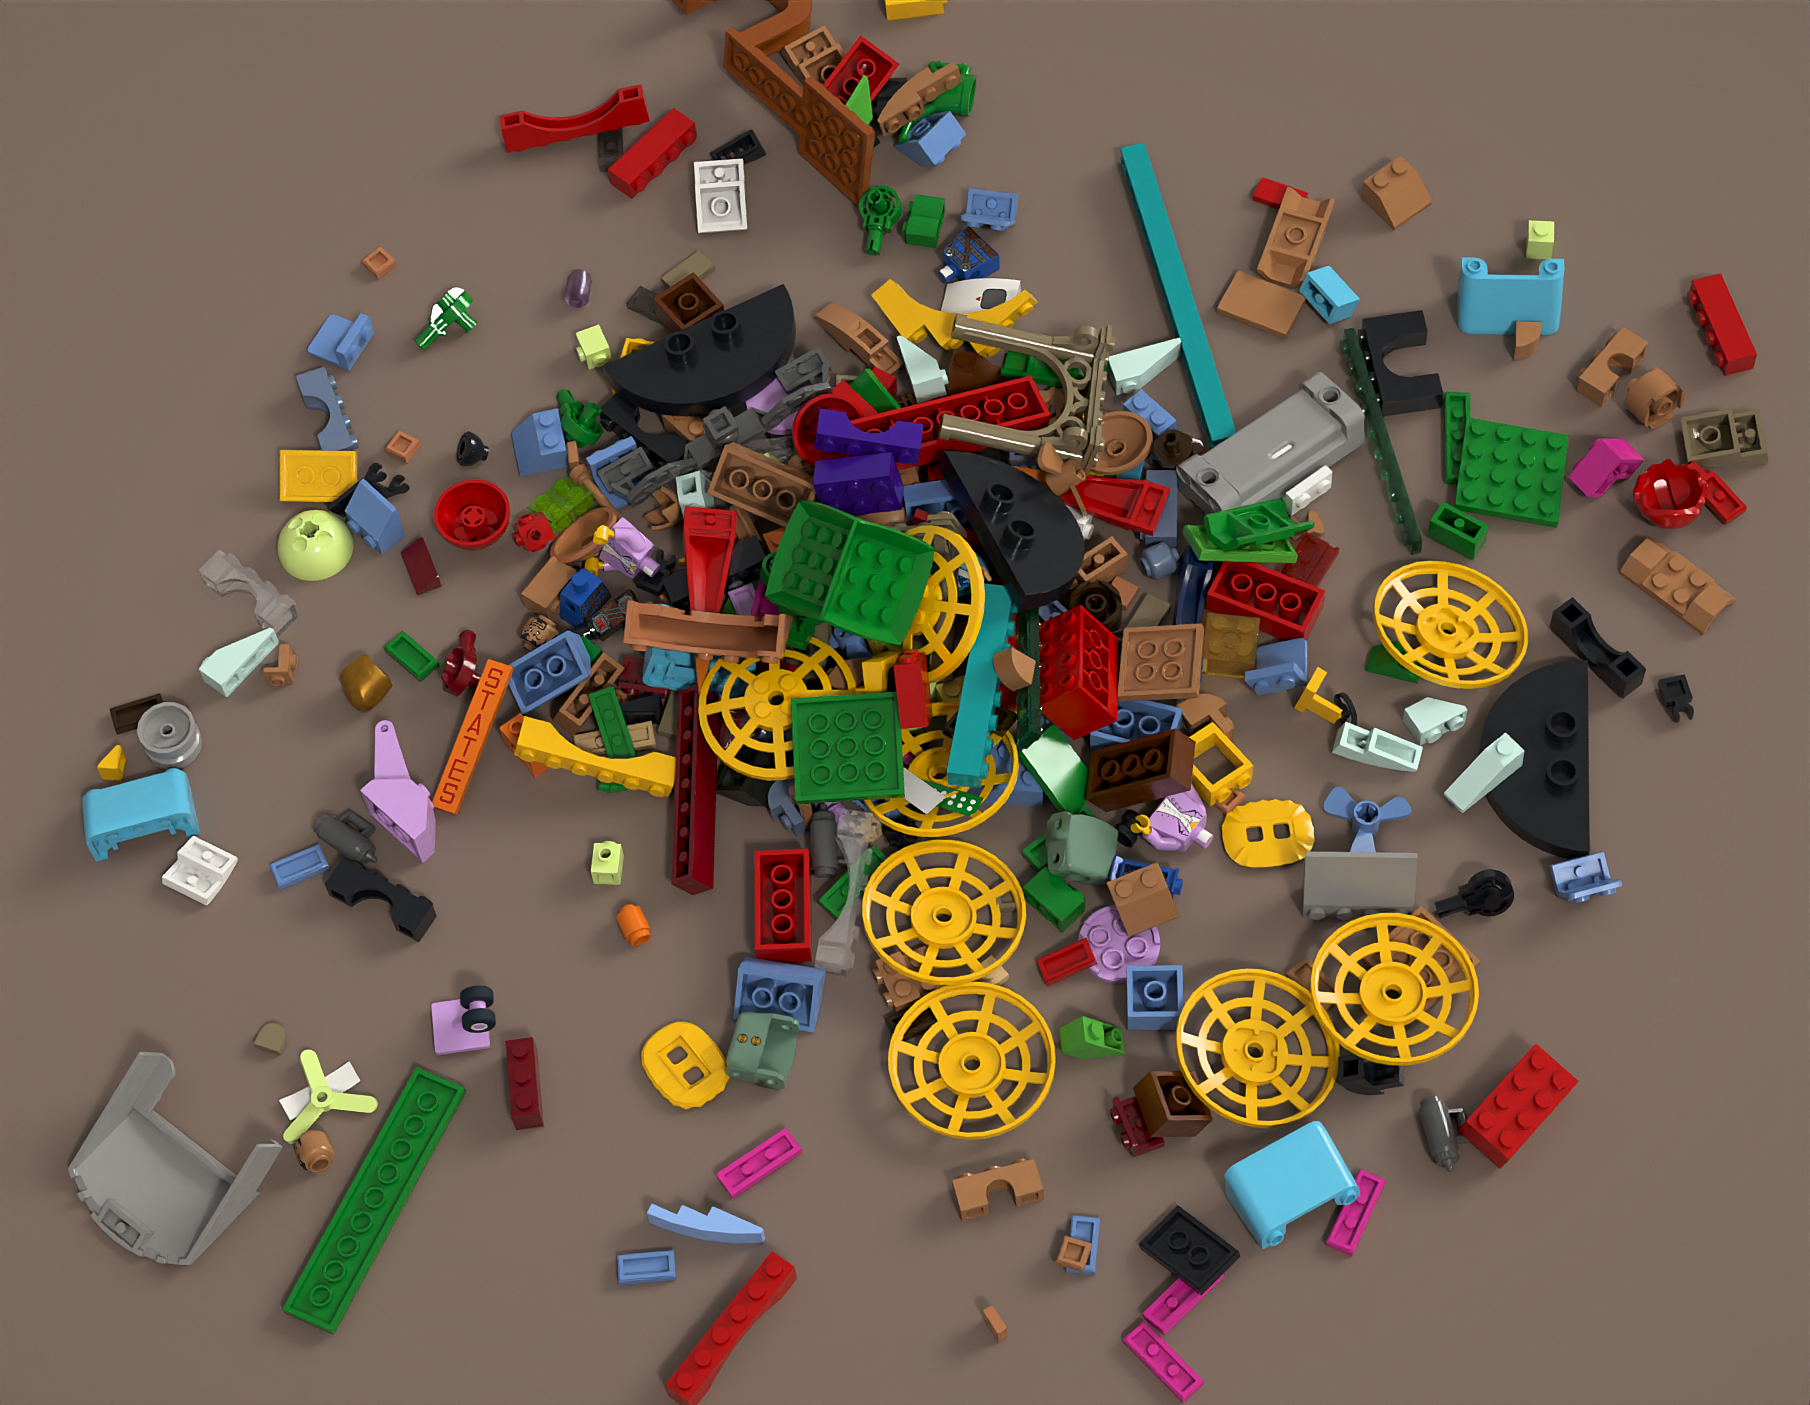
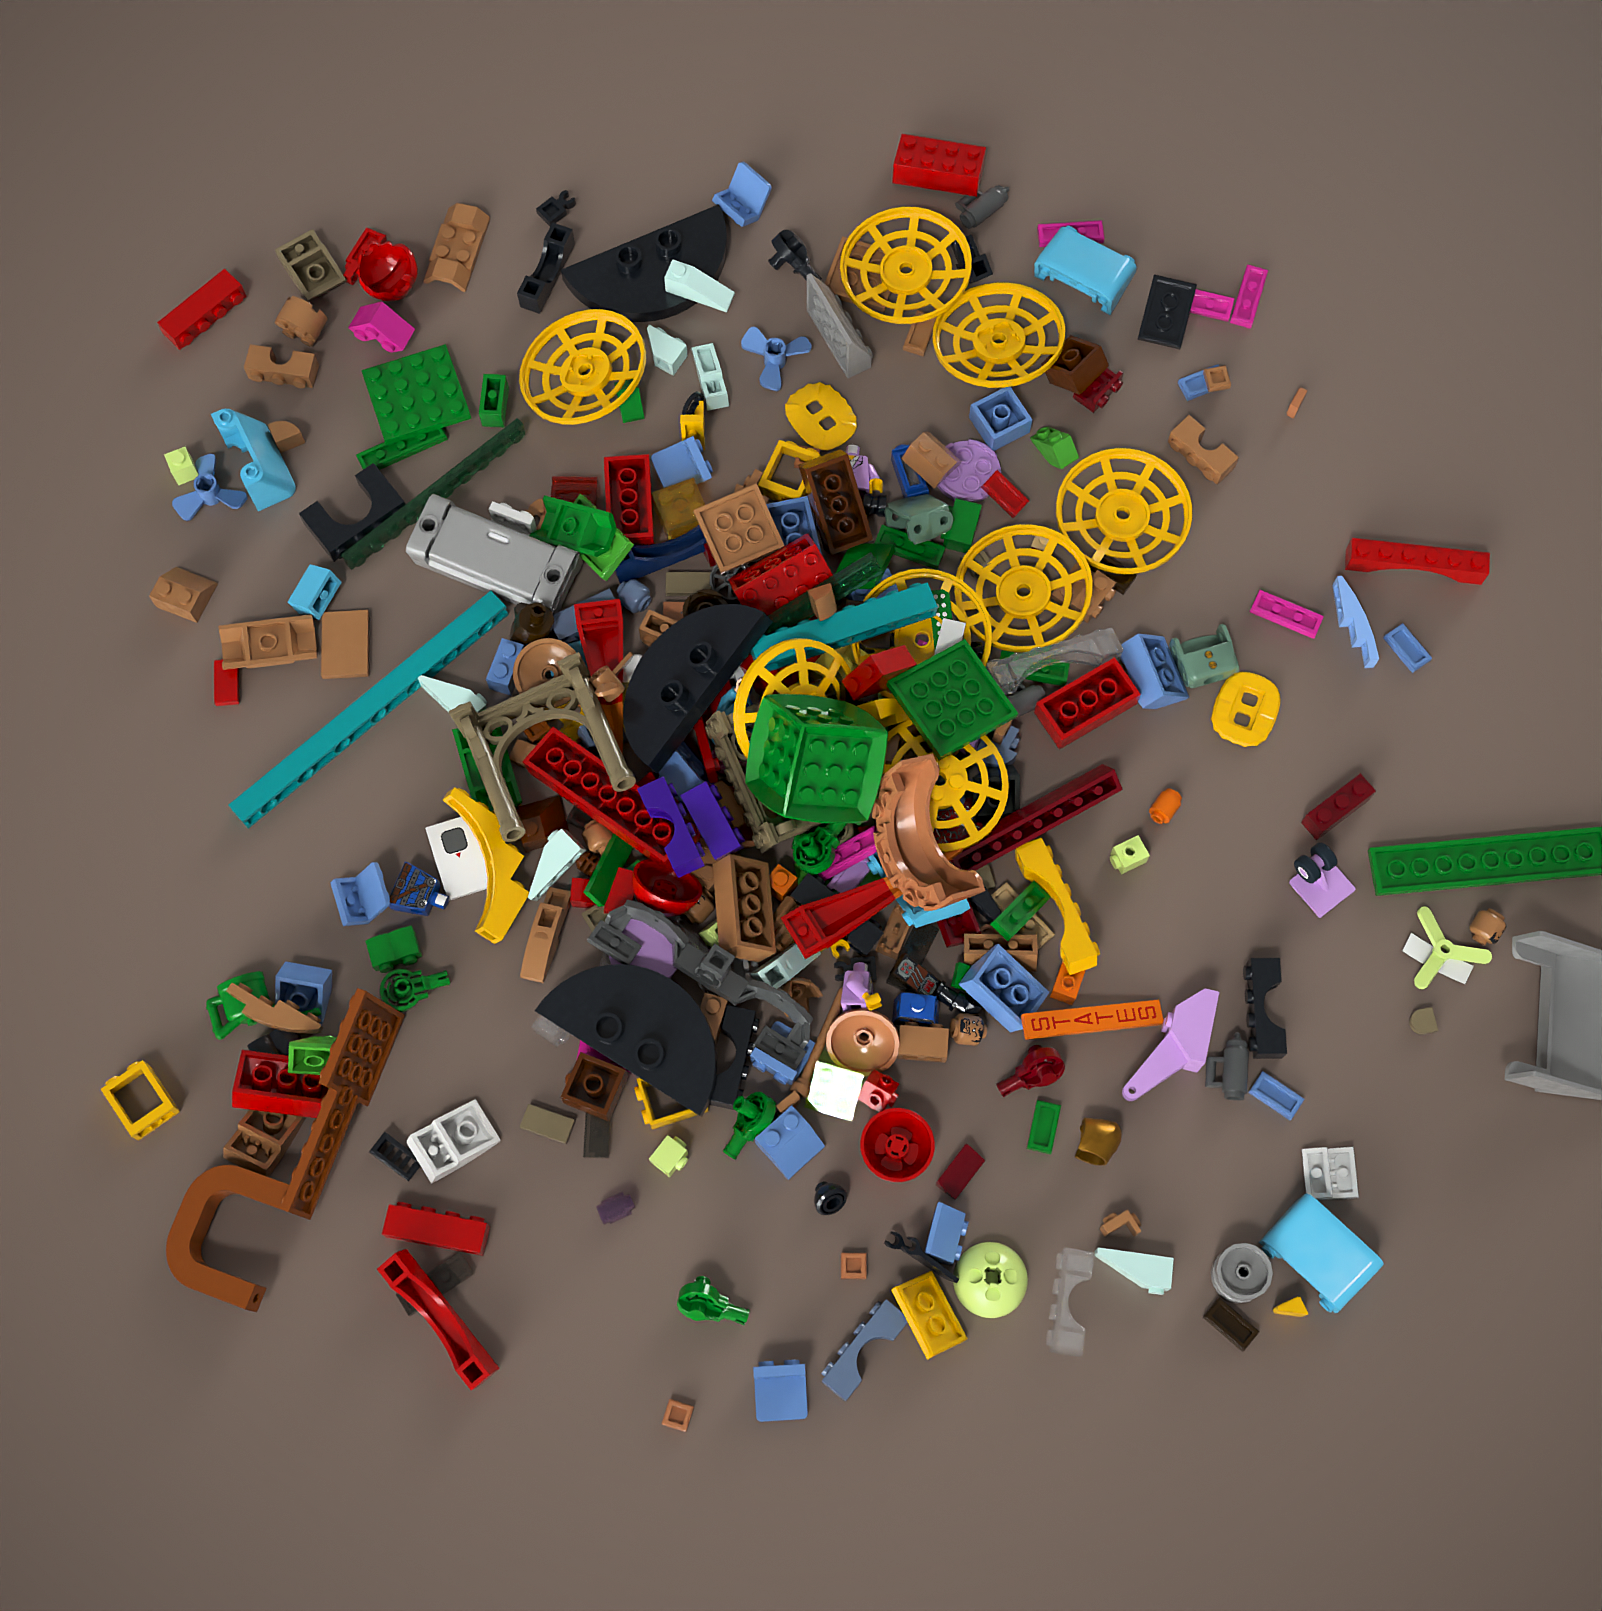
camera: 125 degrees left, 10 degrees up
(1500, 248) = (190, 503): none -> medium blue piece

